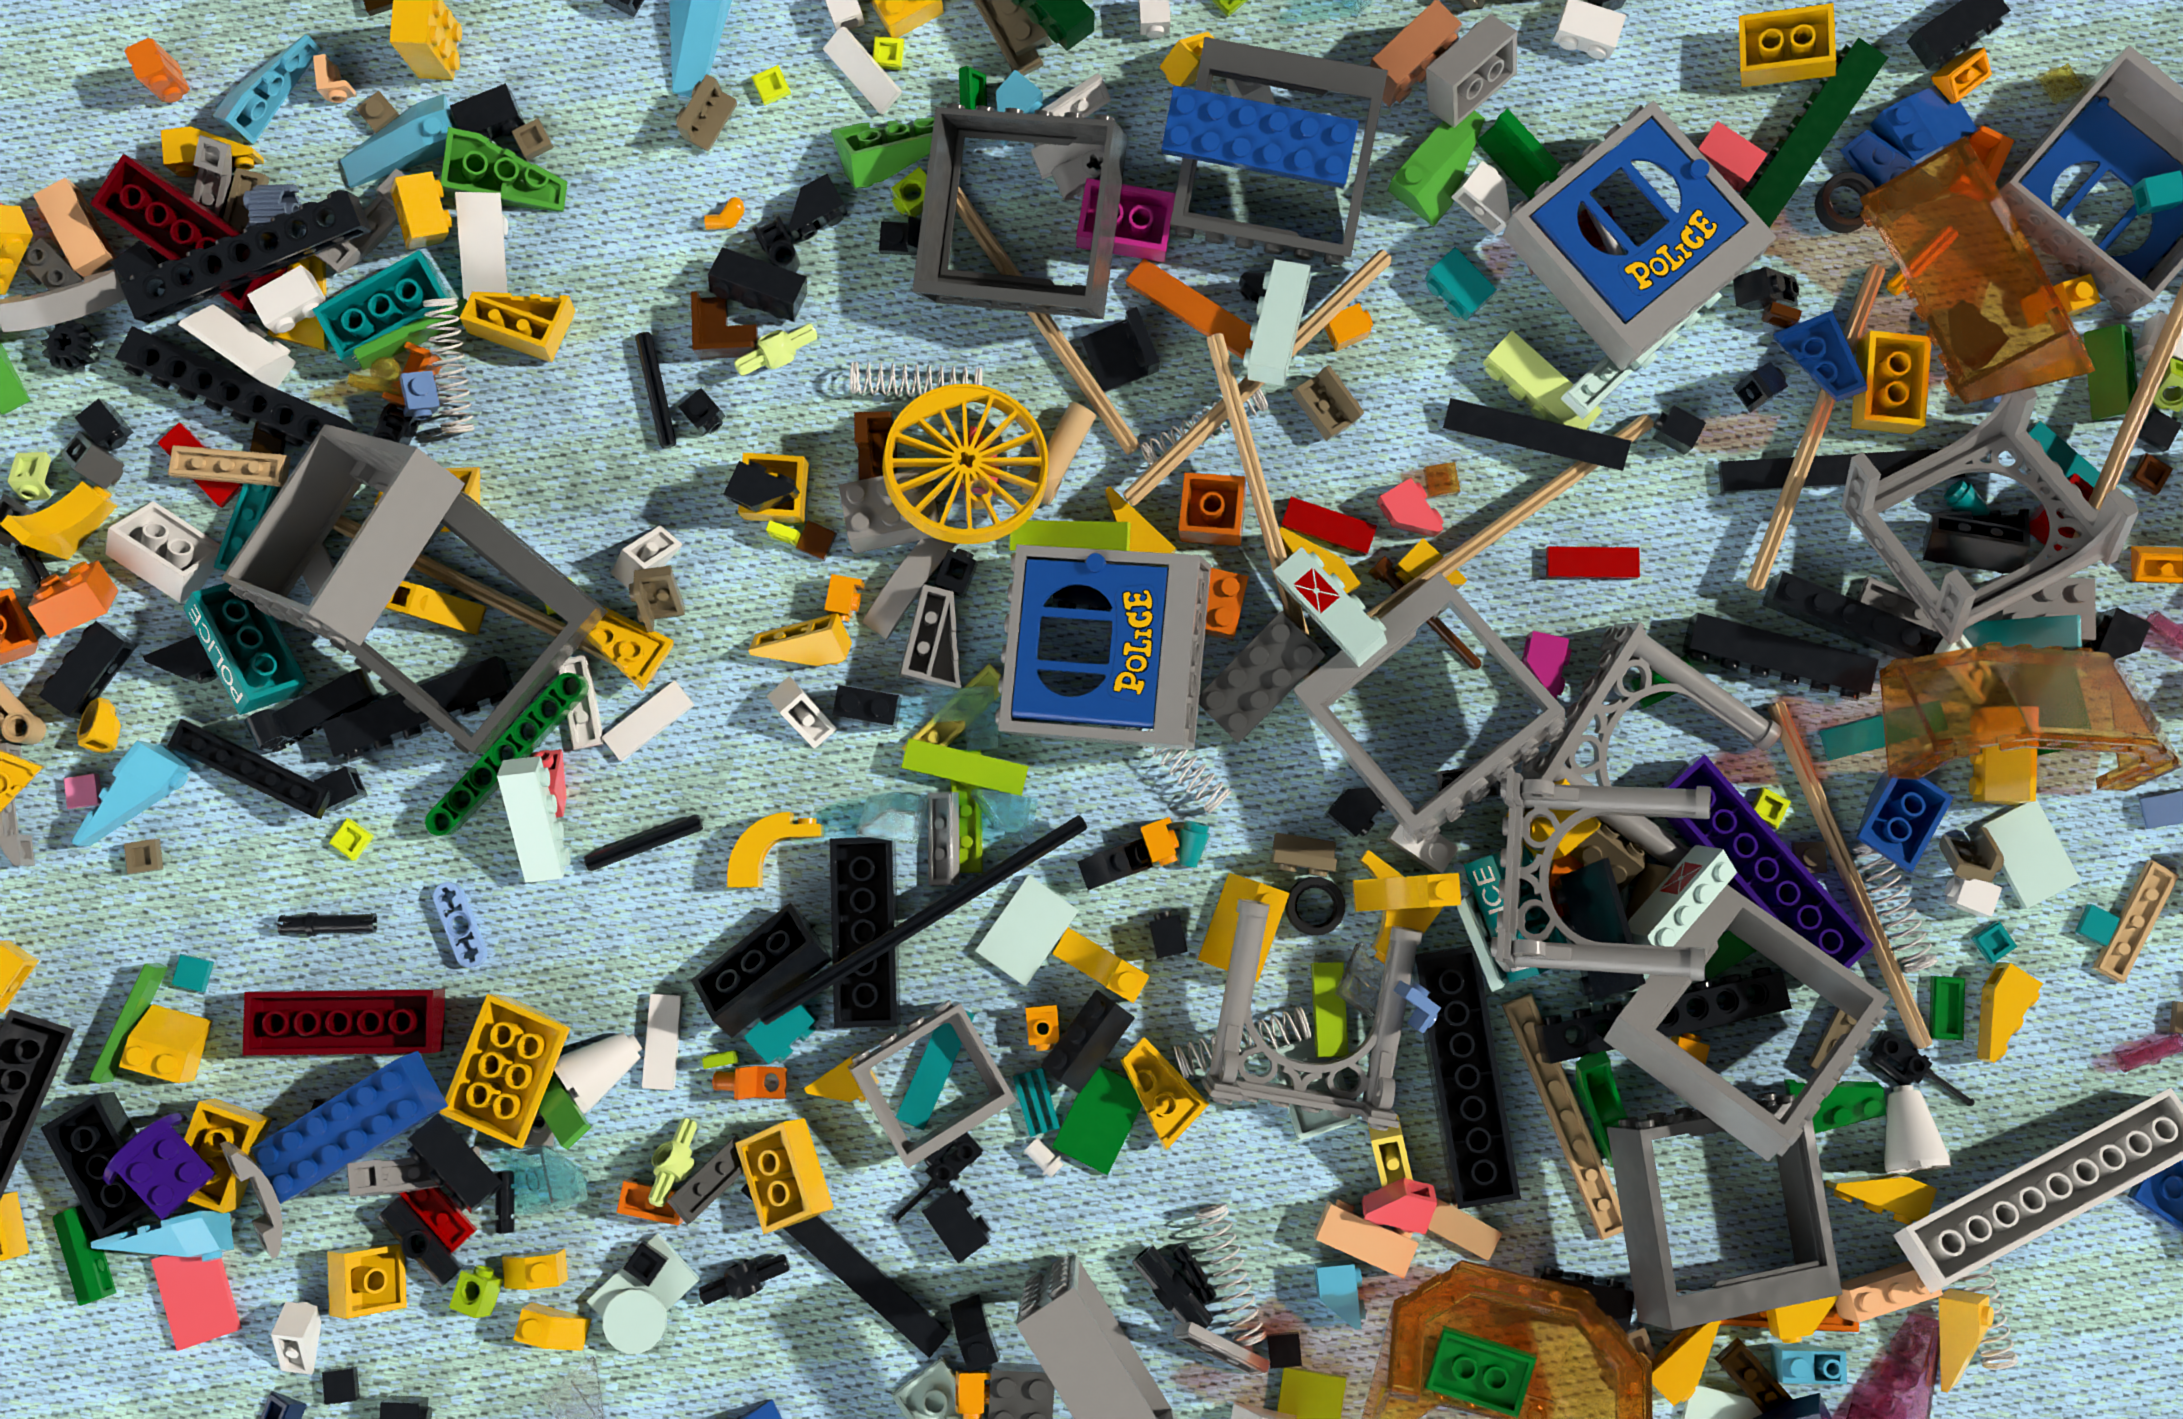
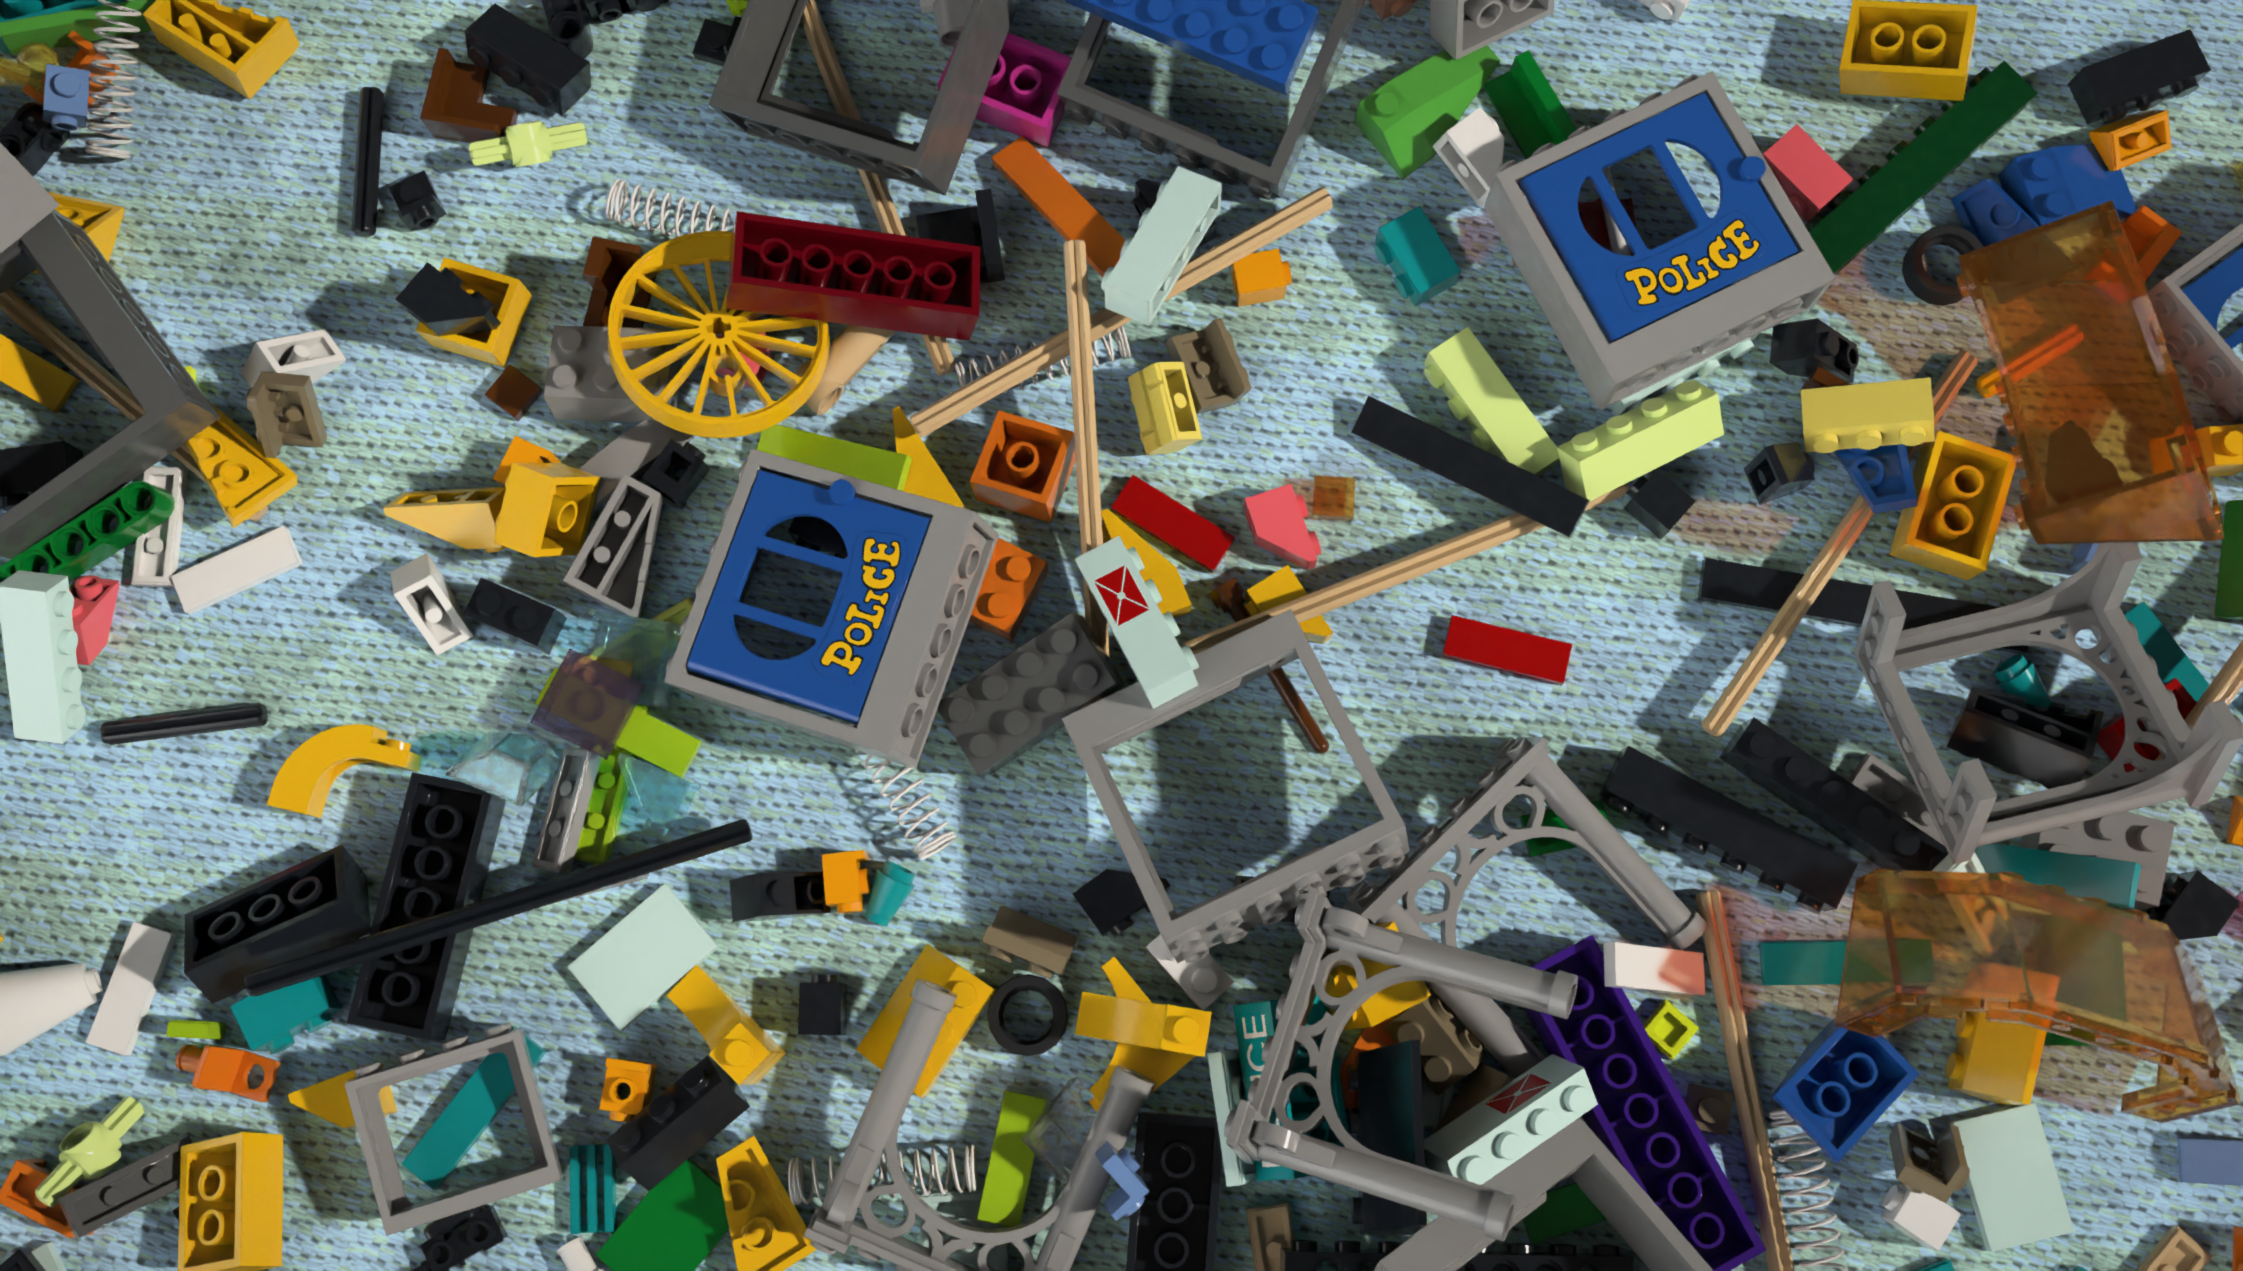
camera: 15 degrees right, 5 degrees down
(783, 533) = (471, 371): neon yellow tile -> none
(872, 623) = (546, 509): none -> yellow brick
(941, 758) = (588, 704): none -> tile
(1056, 398) = (853, 276): none -> dark red brick
(1303, 442) = (1164, 408): none -> light yellow brick
(1545, 659) = (1410, 763): dark pink slope -> none
(1595, 386) = (1558, 422): light aqua tile -> none
(1657, 386) = (1641, 440): none -> yellowish green brick
(1752, 768) = (1654, 969): none -> tile
(1817, 331) = (1868, 415): none -> light yellow brick

